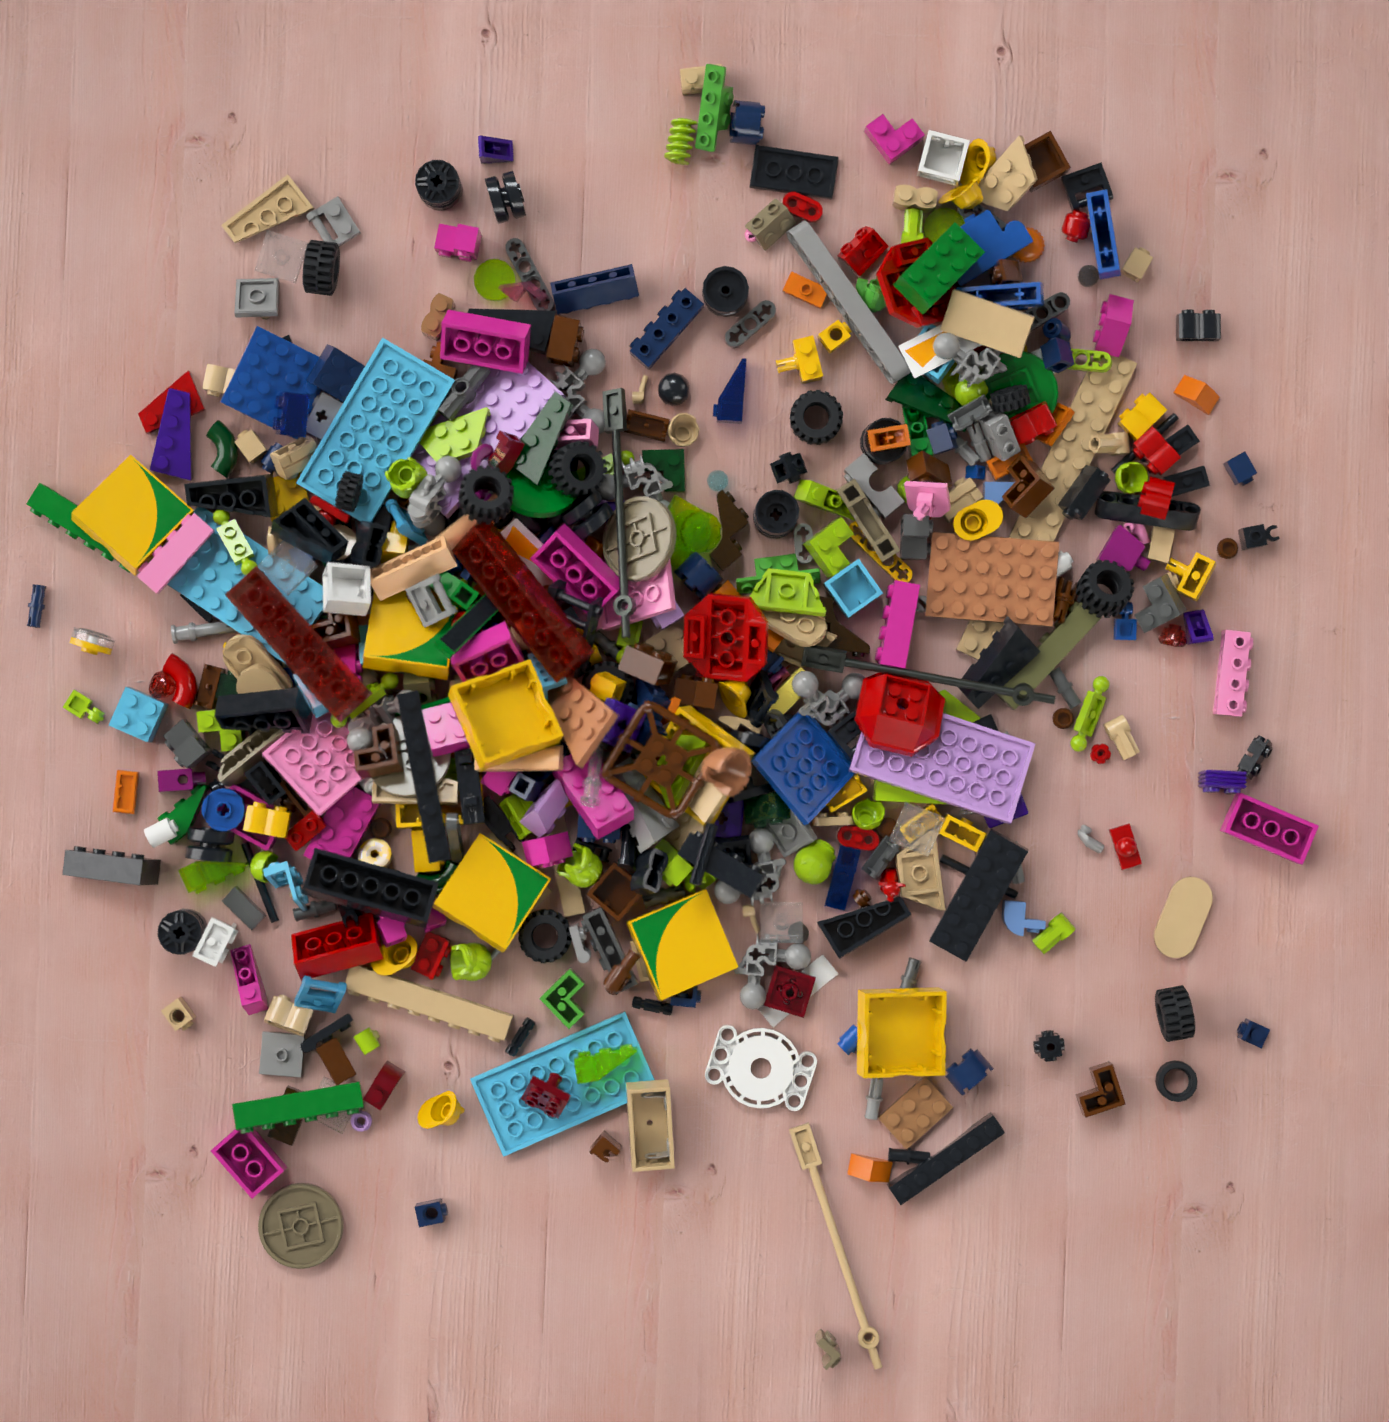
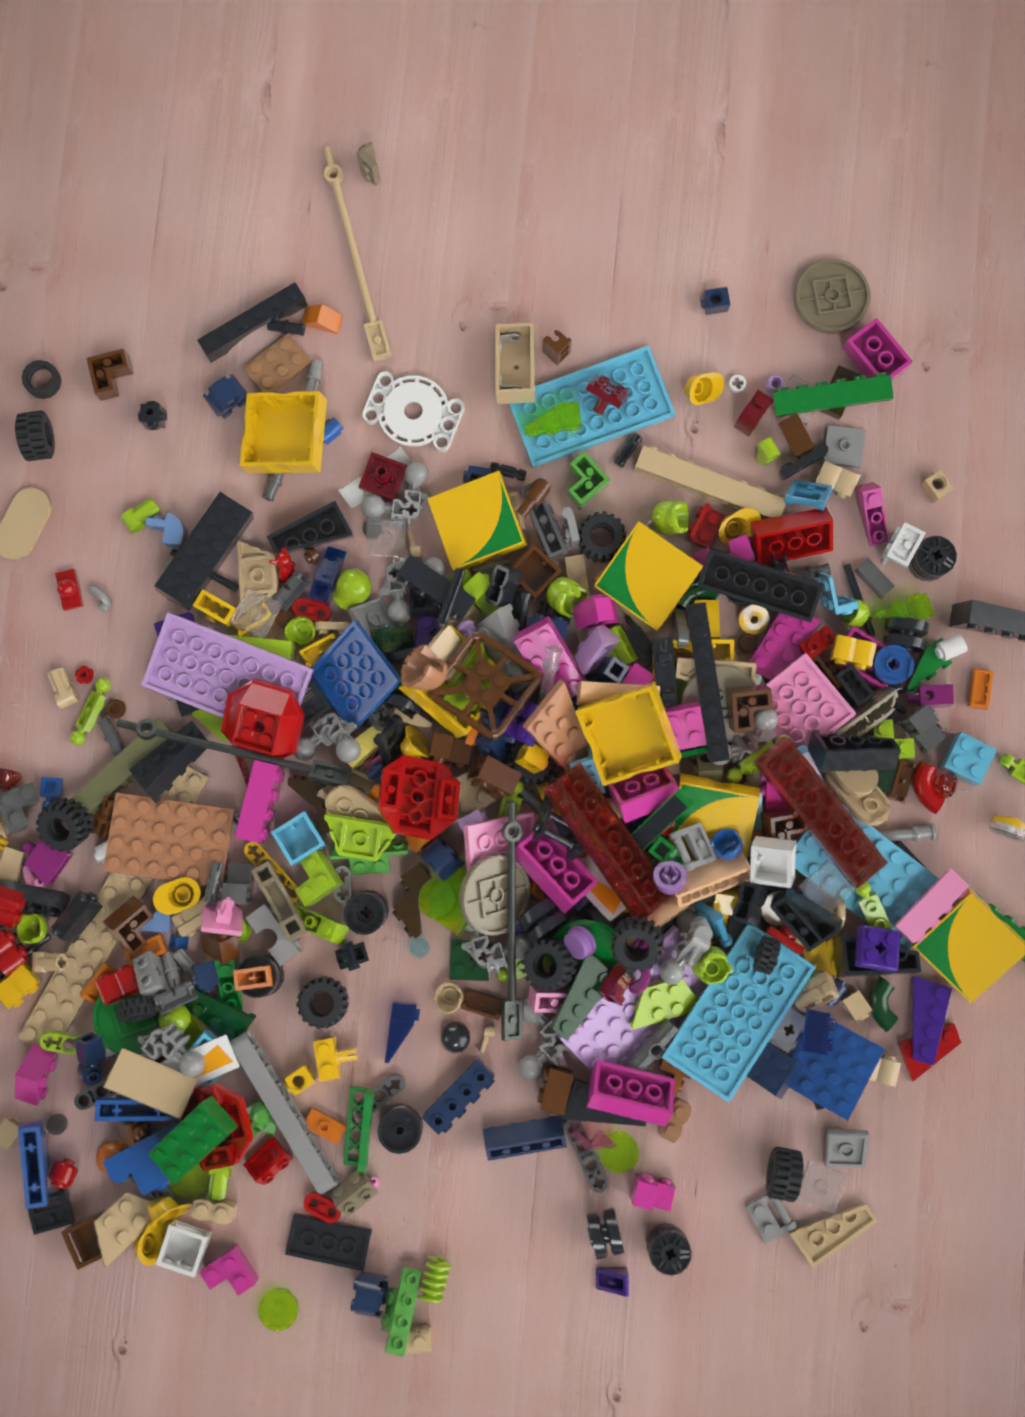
camera: 175 degrees left, 5 degrees down
(241, 495) = (871, 958): none -> dark purple brick
(395, 605) = (727, 844): none -> blue hair
(399, 1124) = (739, 378): none -> white bush
(455, 566) = (669, 877): none -> medium lavender piece
(546, 493) = (580, 942): none -> medium lavender piece
(686, 824) = (466, 627): none -> lavender plate
(761, 290) = (365, 1131): none -> green fence
(841, 101) = (278, 1309): none -> clear neon green tile
(918, 659) = (243, 768): none -> red piece
(939, 536) = (213, 882): none -> dark grey pin

